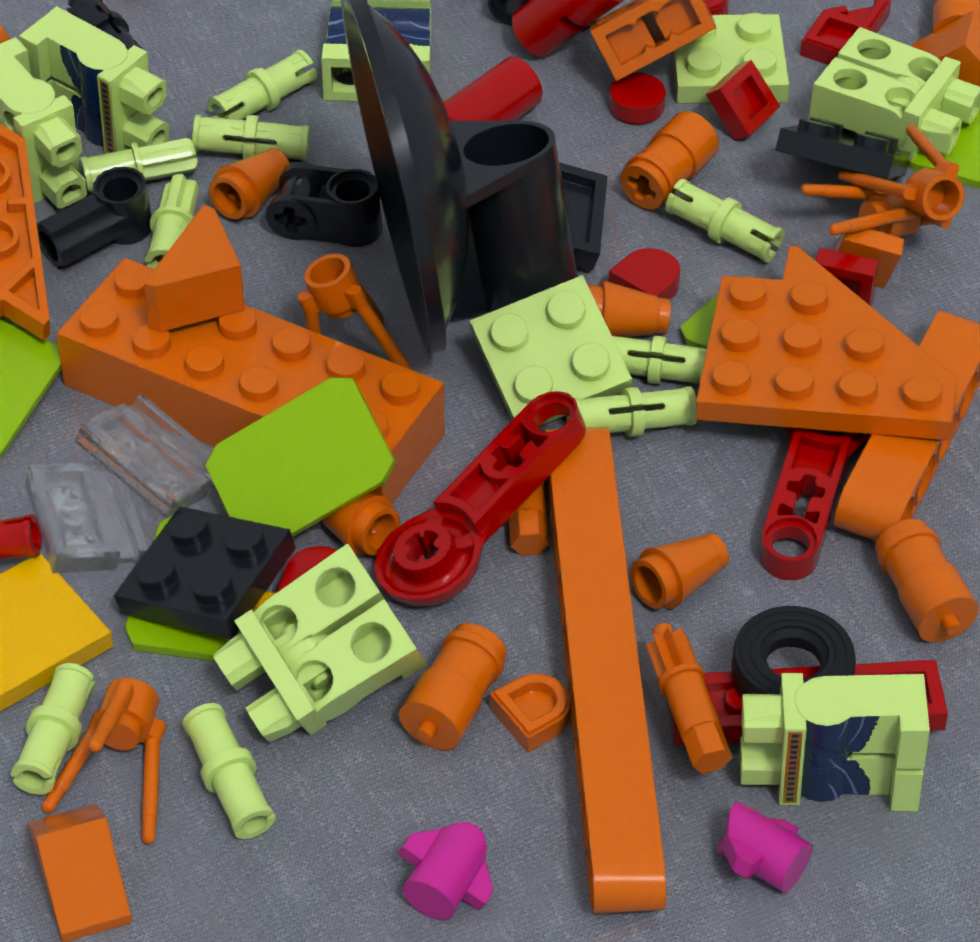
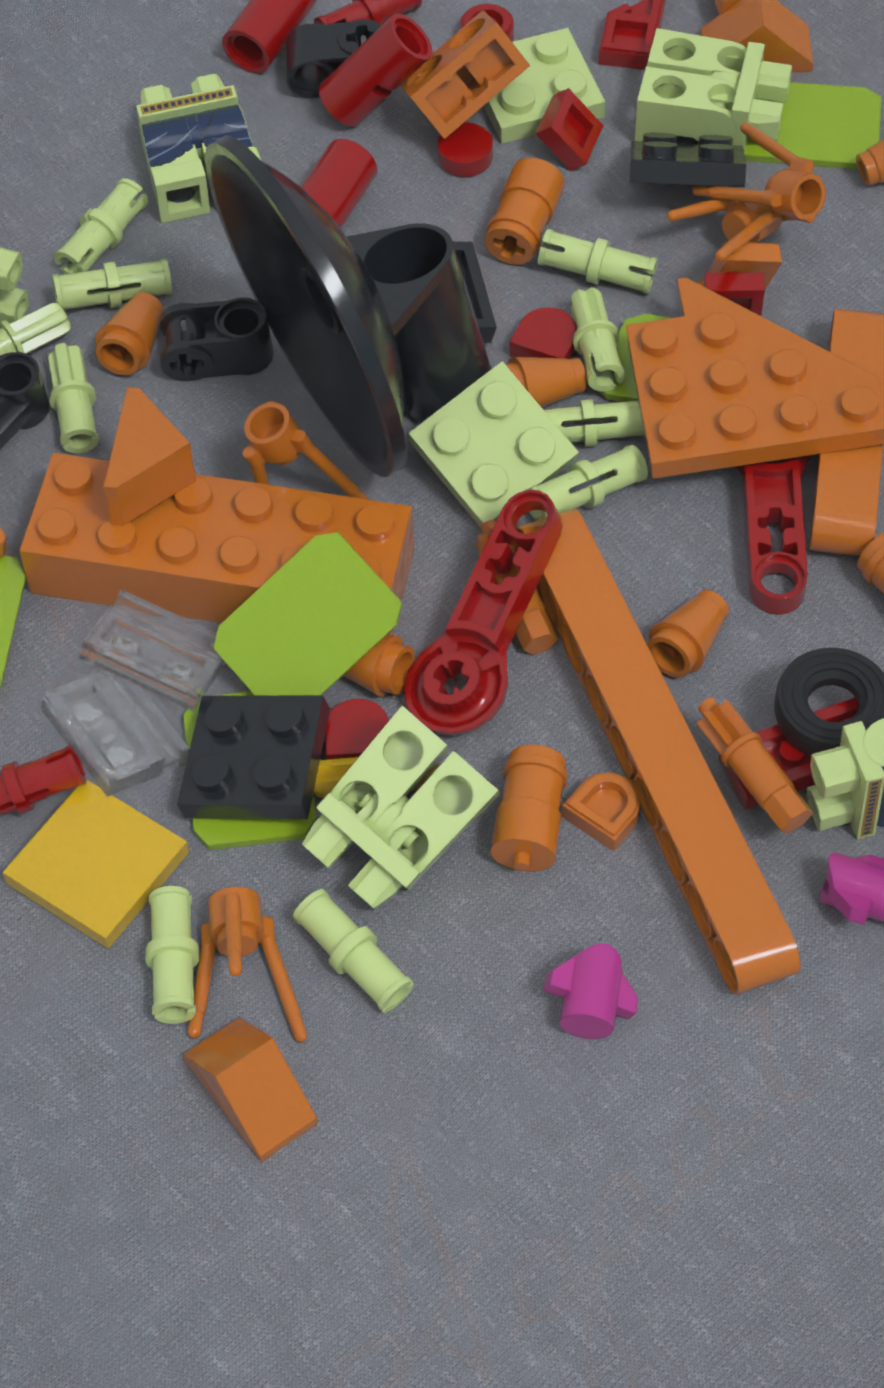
camera: 15 degrees left, 10 degrees up
(693, 288) = (596, 340): none -> yellowish green axle

